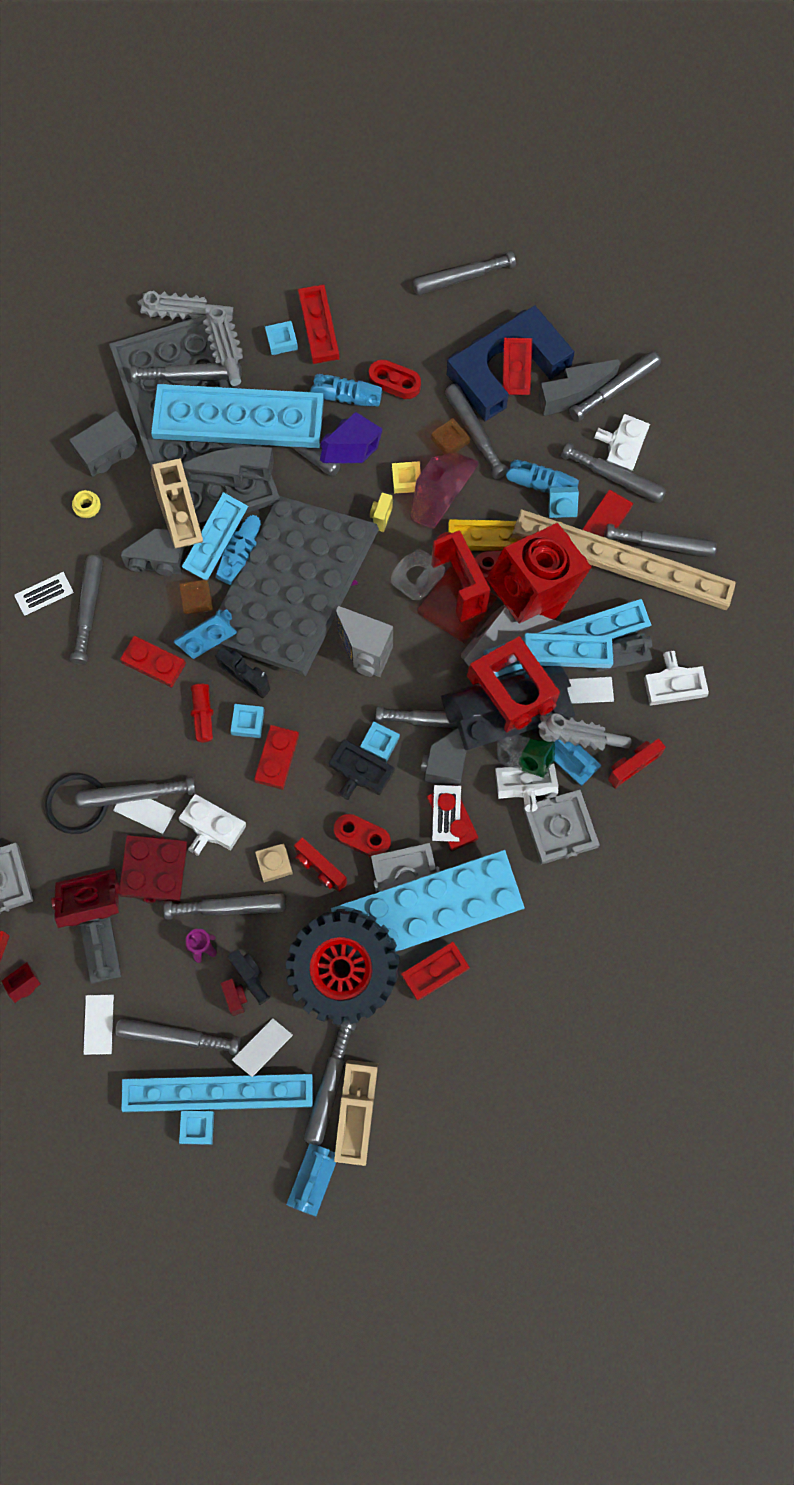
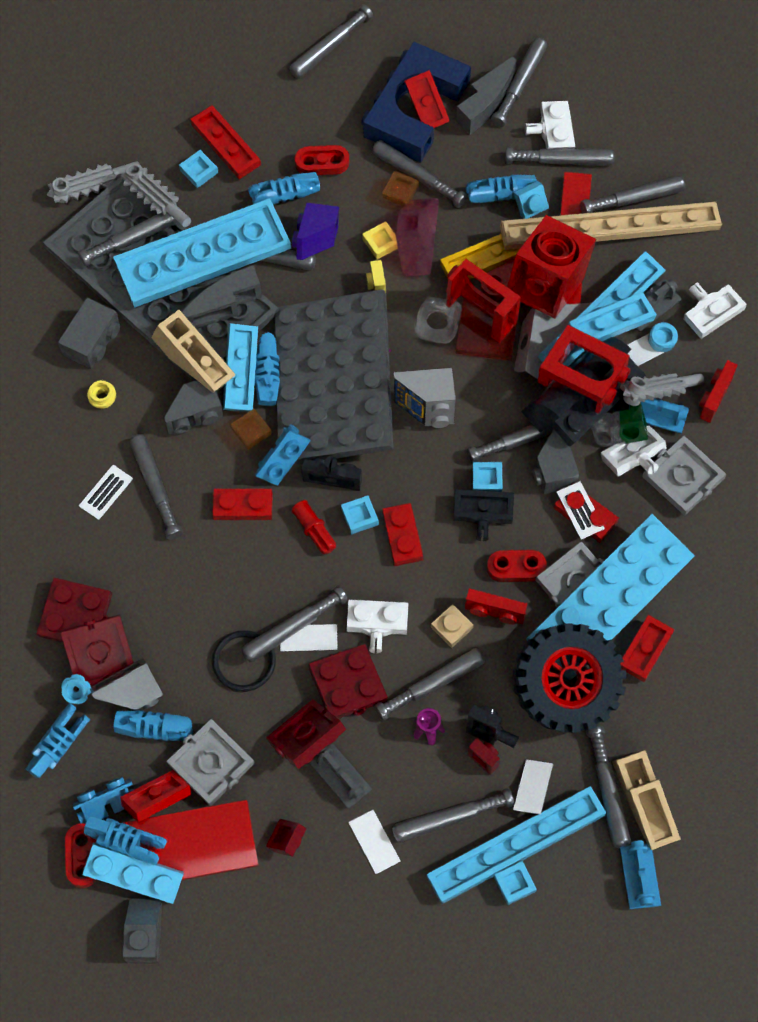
camera: 25 degrees left, 5 degrees down
(615, 687) = (663, 337): none -> medium azure tile

